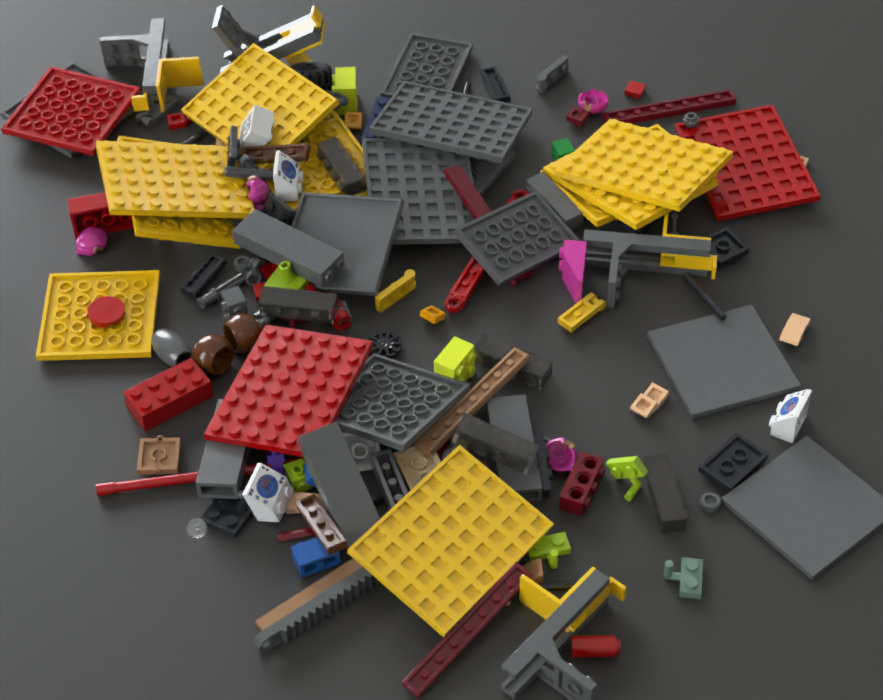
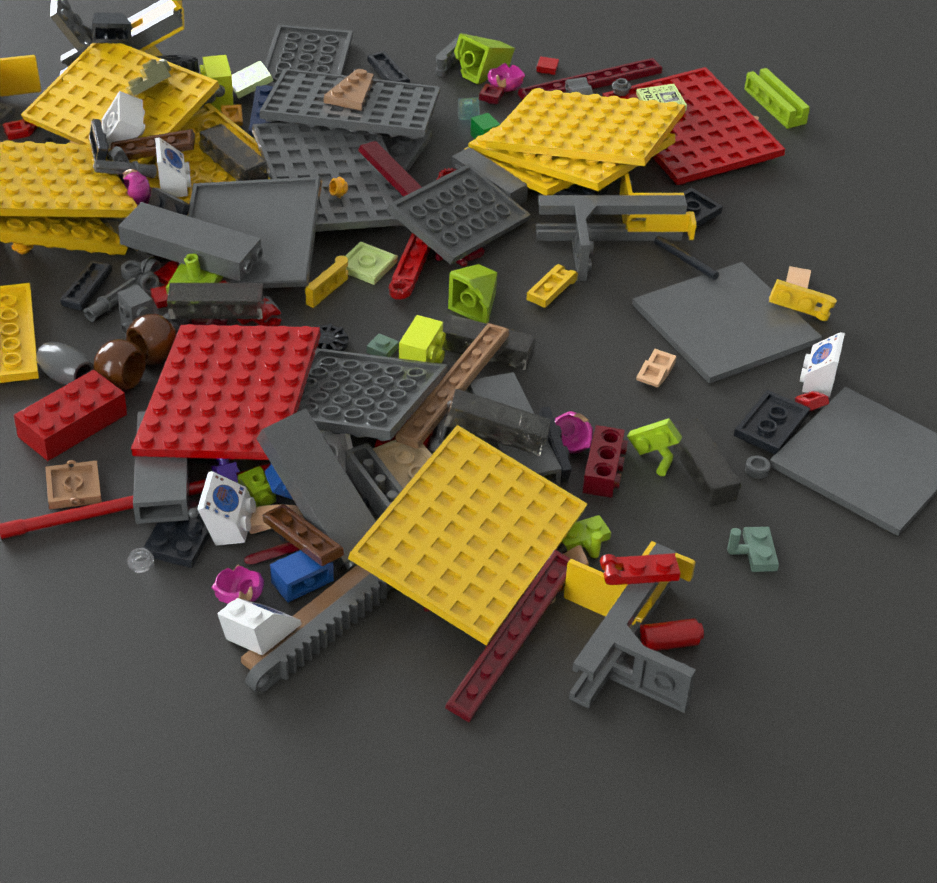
camera: 15 degrees left, 5 degrees down
(261, 39) = (110, 28): none -> black torso
(264, 560) = (239, 584): none -> dark pink hair
(271, 595) = (255, 625): none -> white slope
(285, 88) = (152, 74): none -> olive plate
(374, 87) = (250, 77): none -> tile
(419, 206) = (338, 187): none -> light orange plate
(426, 356) = (382, 346): none -> sand green plate
(432, 314) = (377, 302): light orange tile -> none
(435, 275) = (369, 262): none -> yellowish green tile
(451, 112) = (351, 91): none -> medium nougat wing
(513, 313) = (472, 292): none -> lime slope
(553, 130) = (468, 108): none -> clear light blue tile
(573, 267) = (532, 239): dark pink slope -> none
(574, 591) = (640, 569): none -> red plate
(577, 77) = (480, 55): none -> lime slope
(652, 119) = (578, 85): none -> dark grey axle
(724, 135) = (662, 94): none -> yellowish green tile
(773, 445) = (812, 399): none -> red tile
(792, 348) = (802, 299): none -> yellow plate
(830, 140) = (777, 98): none -> lime brick

